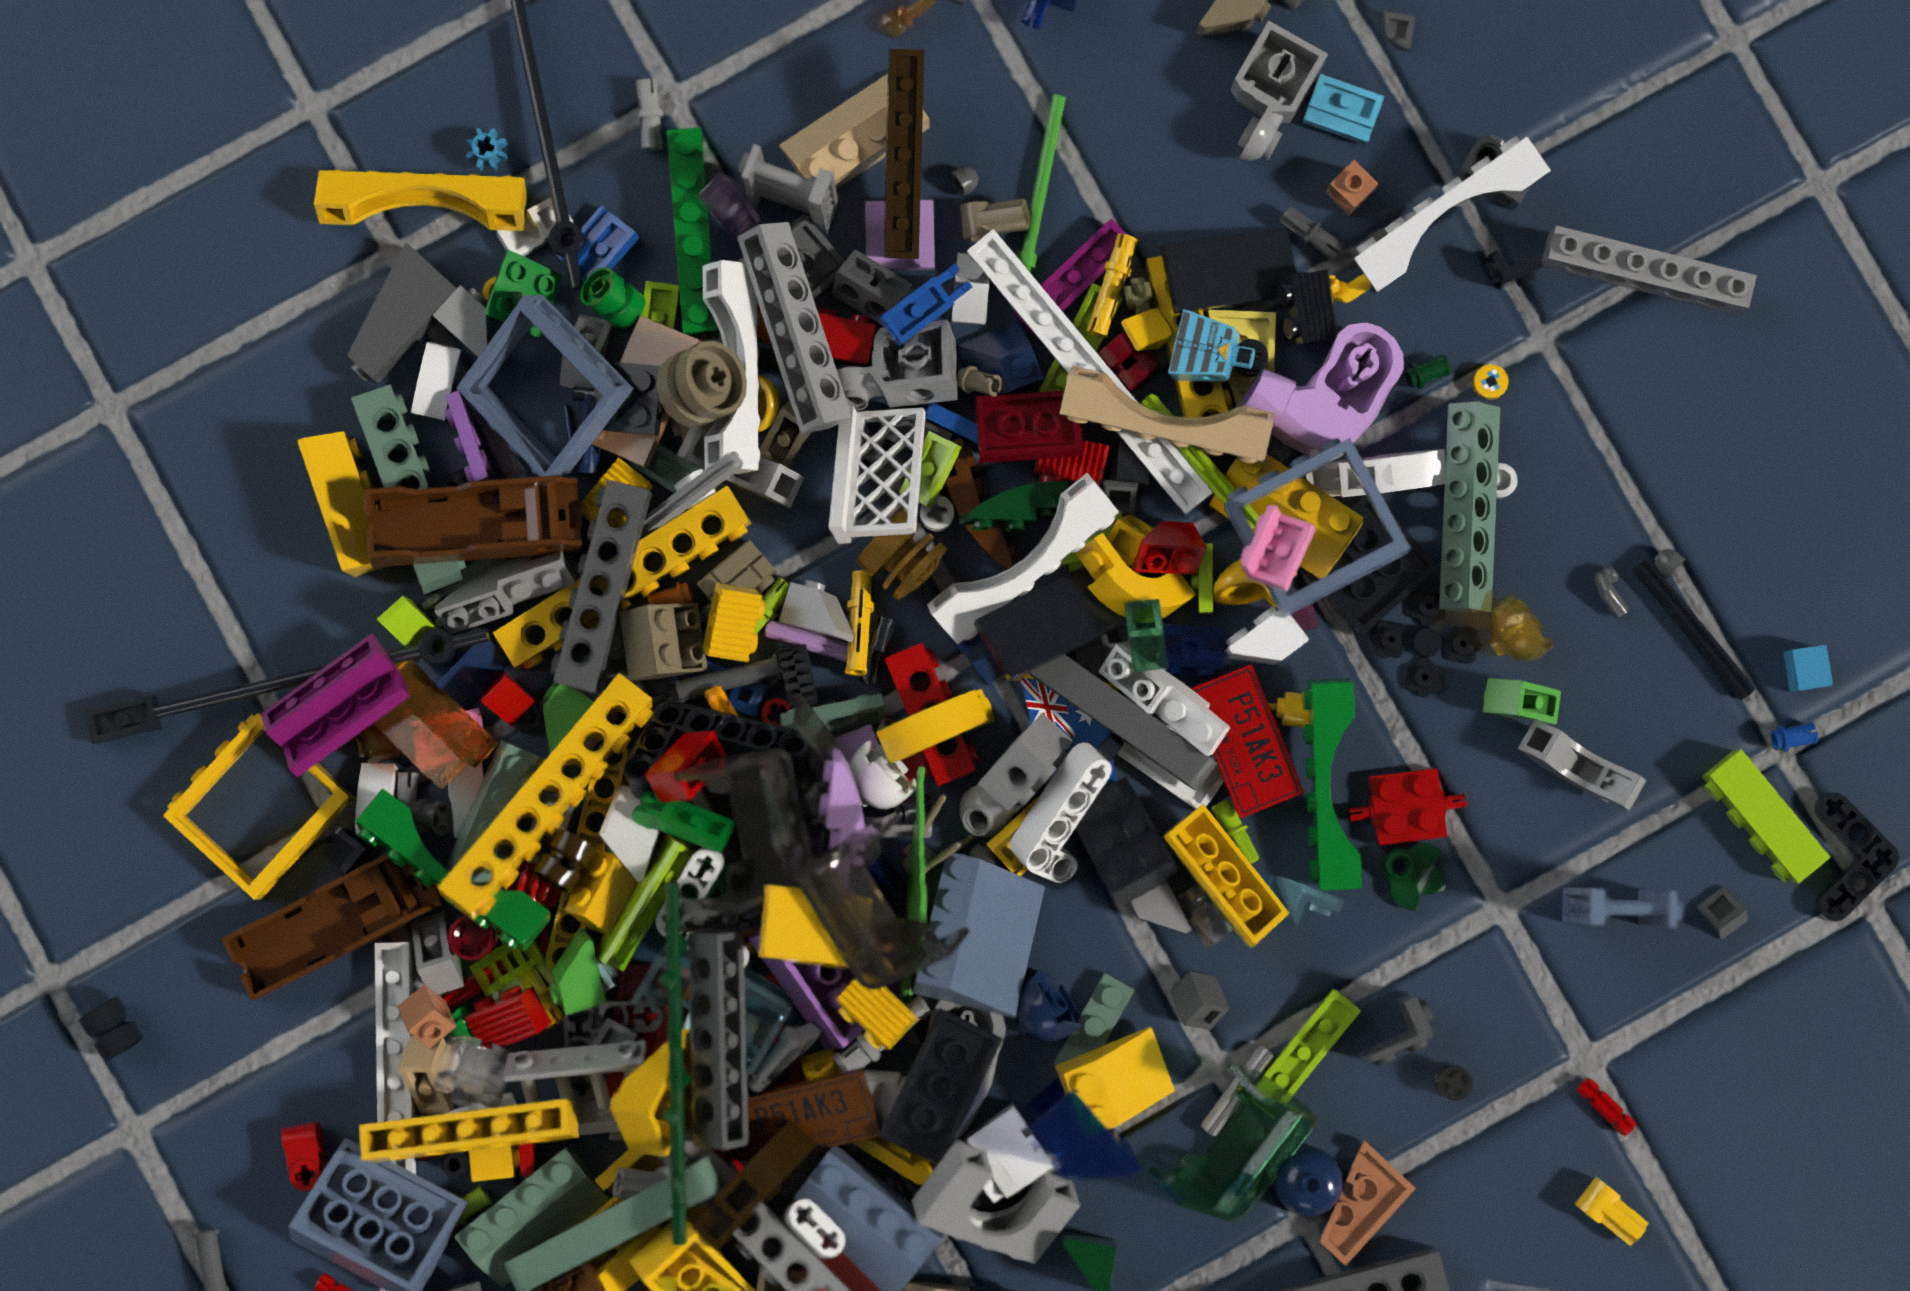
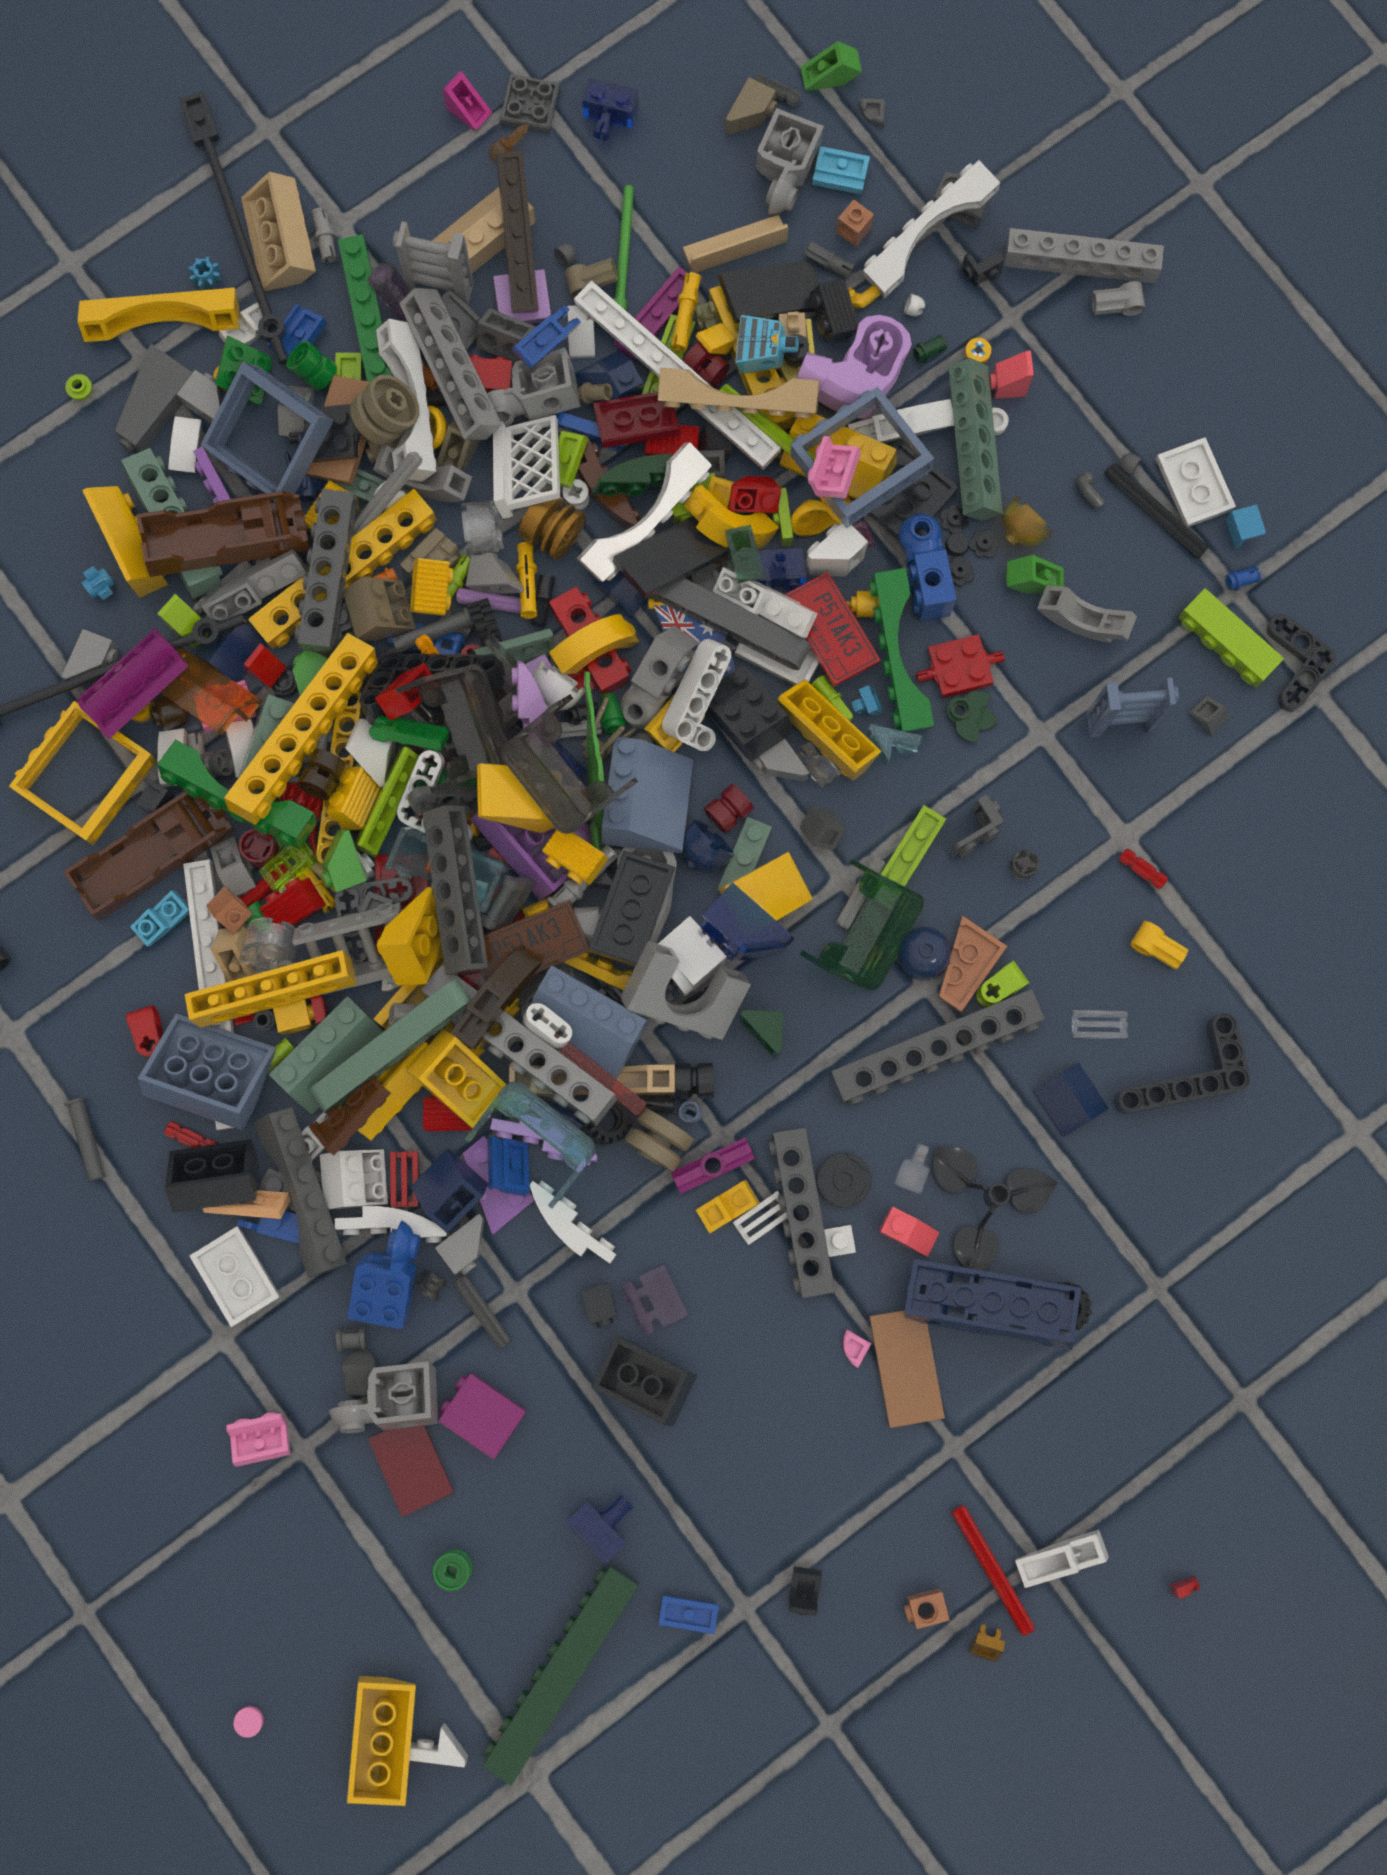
camera: 10 degrees left, 5 degrees down
(284, 652) = (89, 654): none -> light grey slope
(304, 555) = (98, 583): none -> dark azure gear
(305, 293) = (81, 393): none -> lime plate
(338, 1008) = (161, 919): none -> medium azure slope
(589, 104) = (278, 232): none -> tan slope
(677, 1076) = (427, 920): dark green plant -> none
(808, 549) = (481, 527): none -> clear brick
(948, 820) = (613, 715): none -> green cone
(1082, 961) = (728, 809): none -> dark red wheel
(1190, 193) = (735, 244): none -> tan panel
(1250, 322) = (793, 323): none -> tan tile
(1283, 842) = (868, 702): none -> dark azure tile
(1383, 670) = (928, 568): none -> blue brick
(1407, 1233) = (1003, 983): none -> lime piece
(1414, 309) = (914, 305): none -> white hinge
(1530, 427) = (1012, 376): none -> coral slope
(1696, 336) = (1125, 299): none -> light grey piece
(1751, 599) = (1195, 482): none -> white plate

